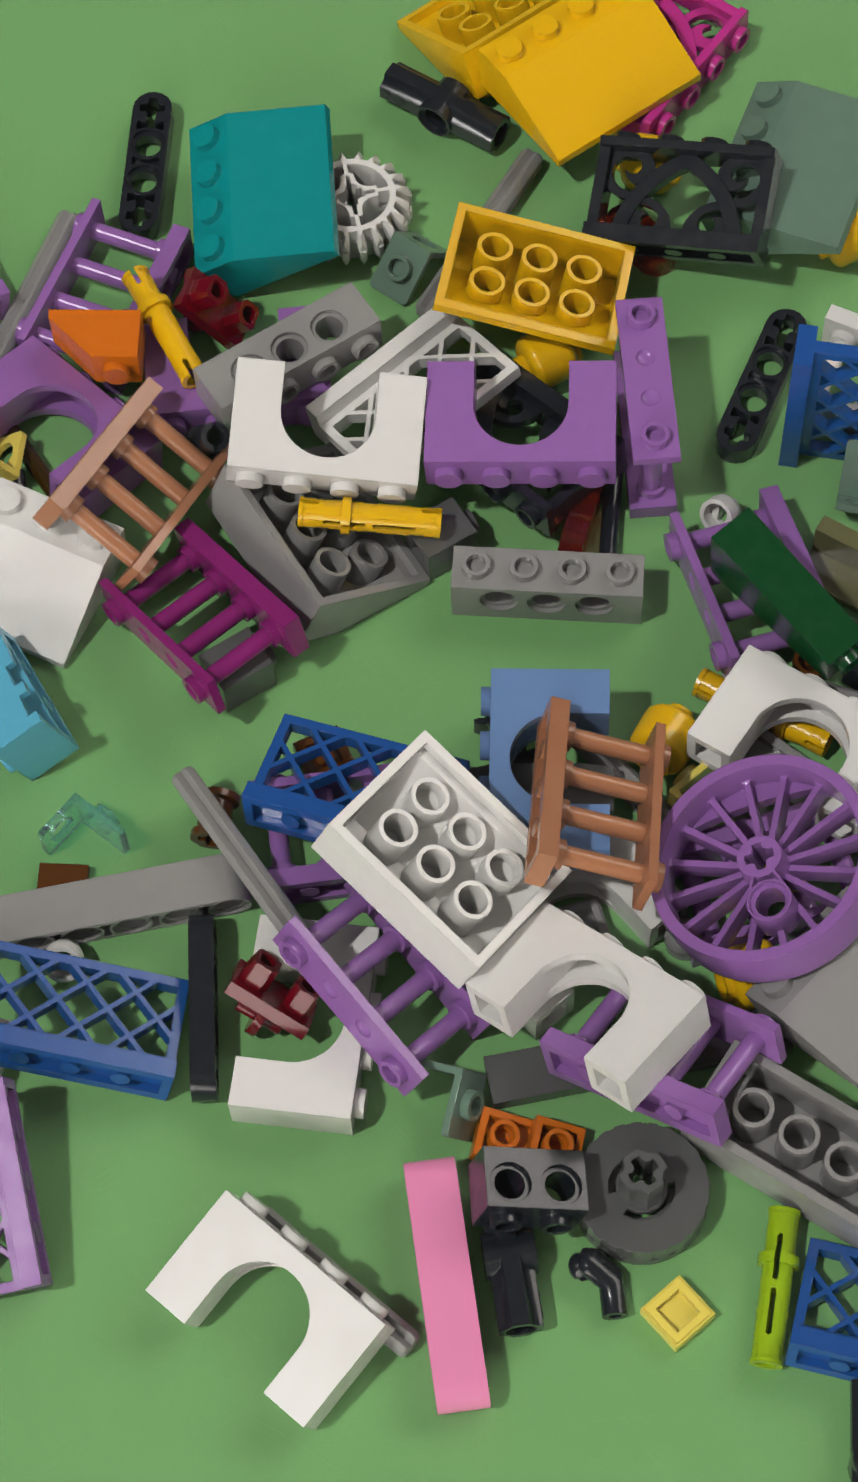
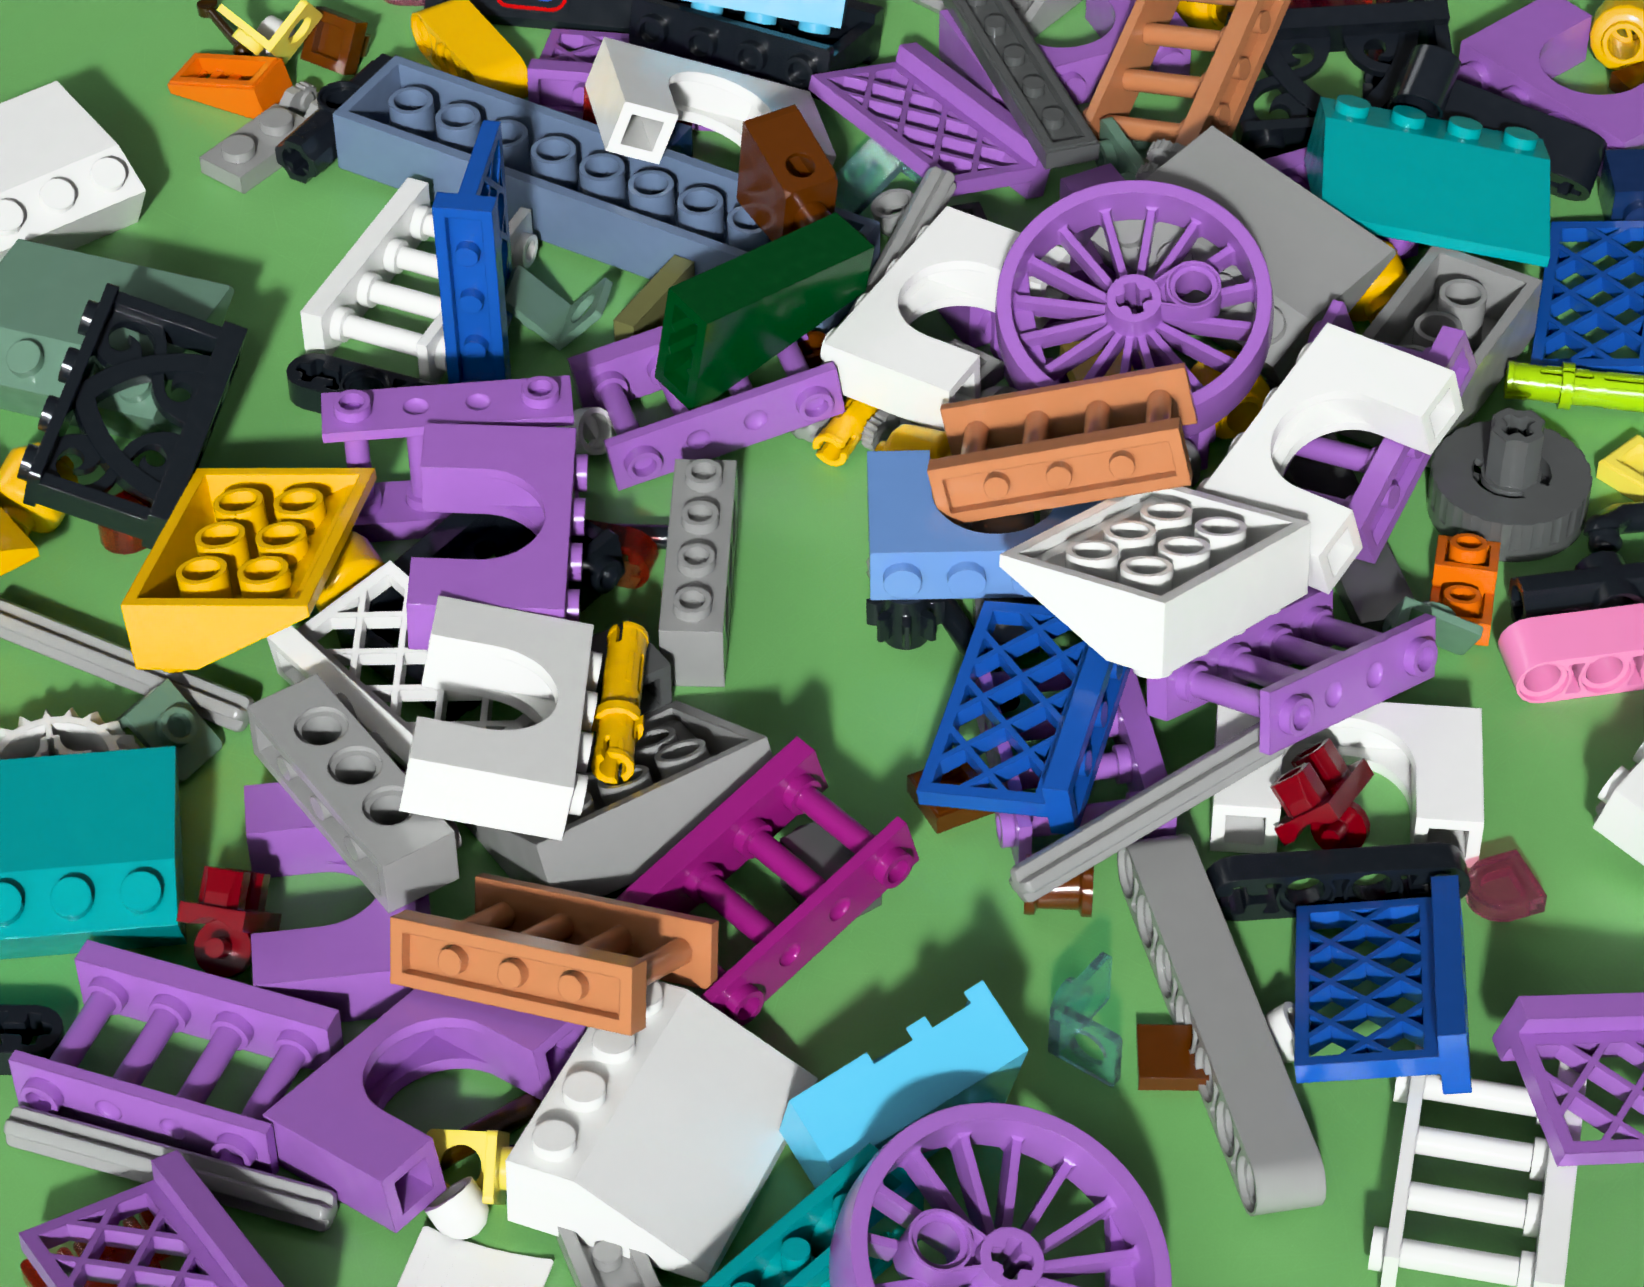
camera: 95 degrees left, 20 degrees down
(102, 342) = (310, 998): orange slope -> none
(158, 314) = (256, 945): yellow pin -> none
(199, 1130) = (1504, 888): none -> clear pink tile
(216, 435) = (467, 890): black pin -> none
(525, 1176) = (1550, 538): black brick -> none

